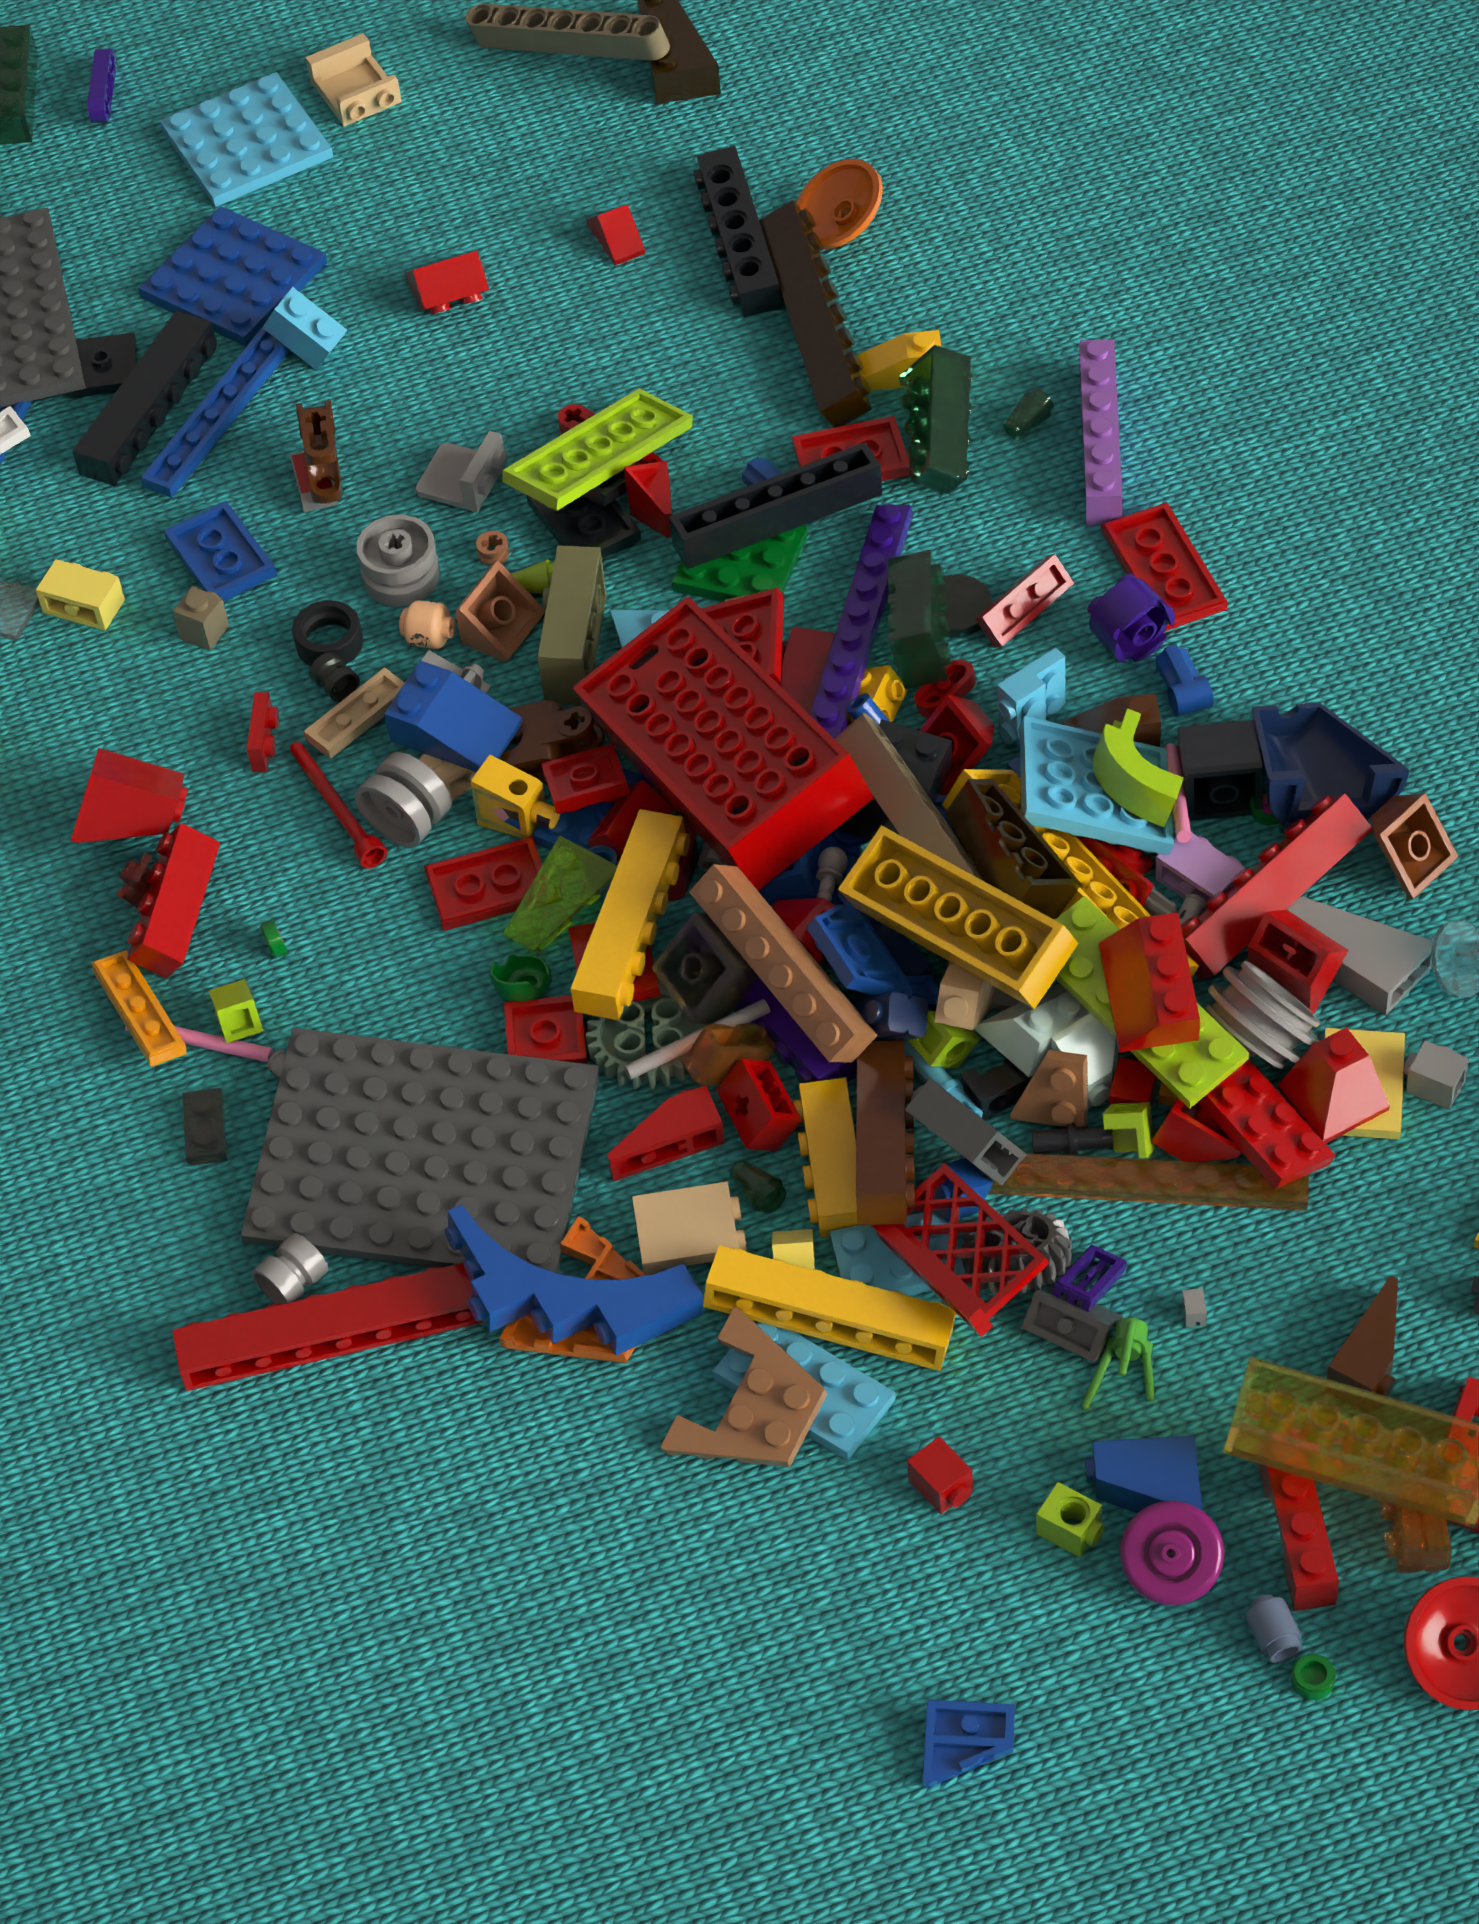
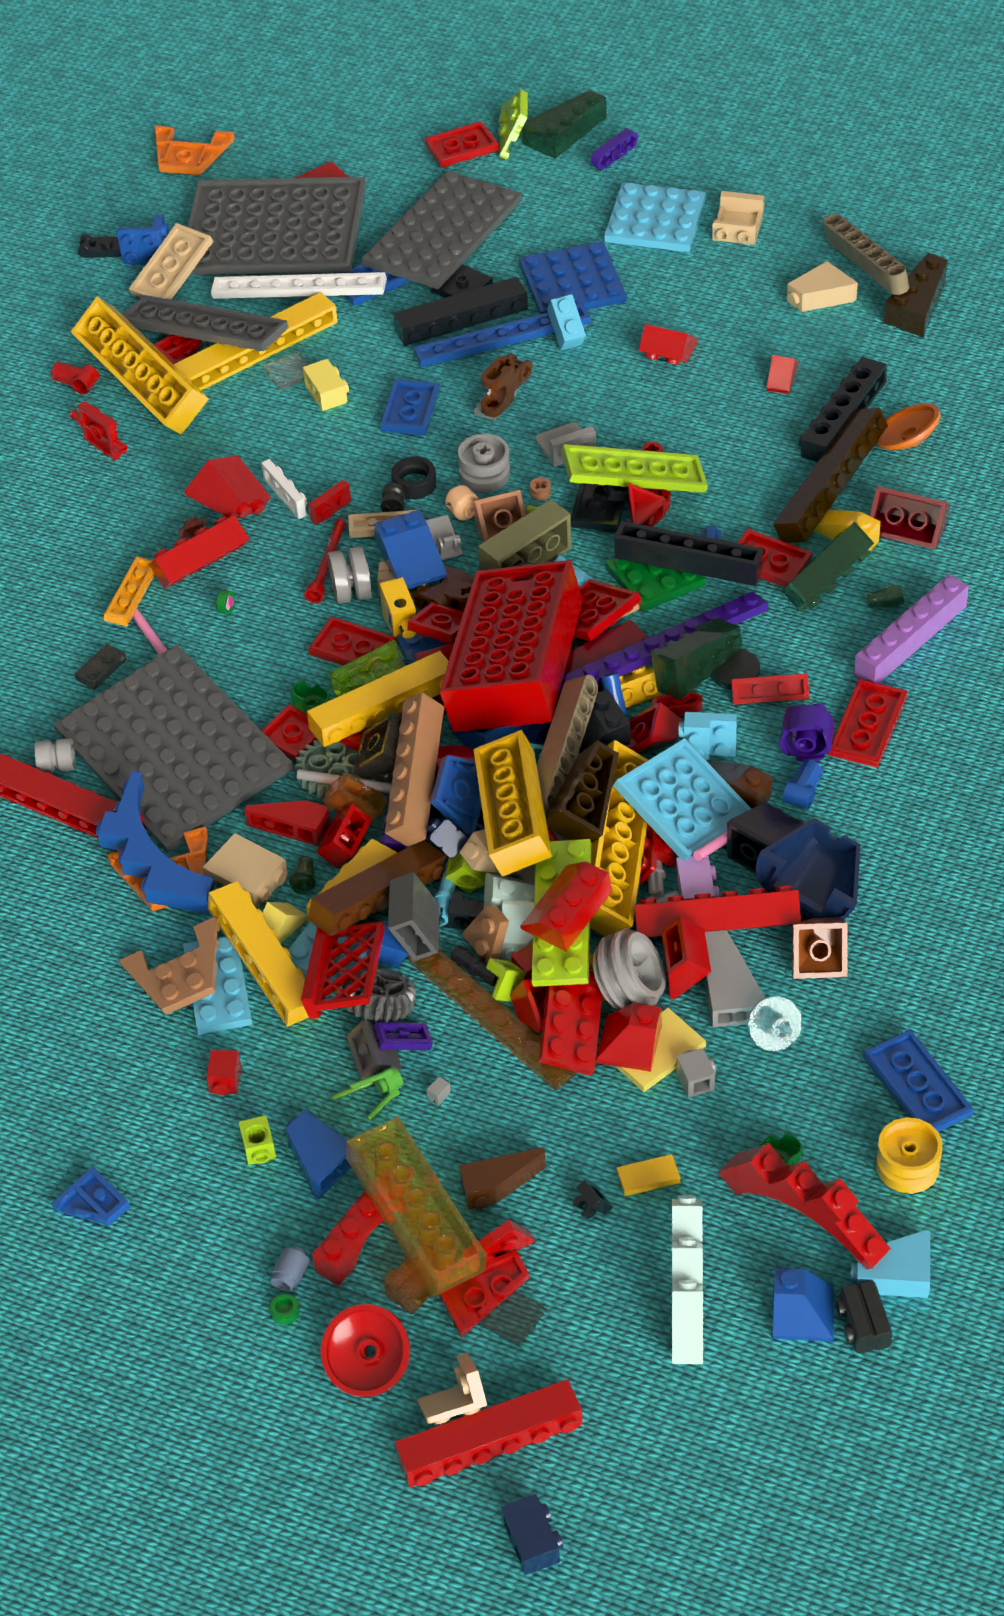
camera: 40 degrees right, 5 degrees down
(183, 754) = (284, 488): none -> white plate
(201, 618) = (364, 430): dark tan brick -> none
(235, 1011) = (167, 621): lime brick -> none
(550, 105) = (821, 288): none -> tan slope
(957, 304) = (909, 517): none -> dark red slope
(1131, 778) = (698, 808): lime arch -> none
(1172, 1552) = (280, 1192): magenta wheel -> none

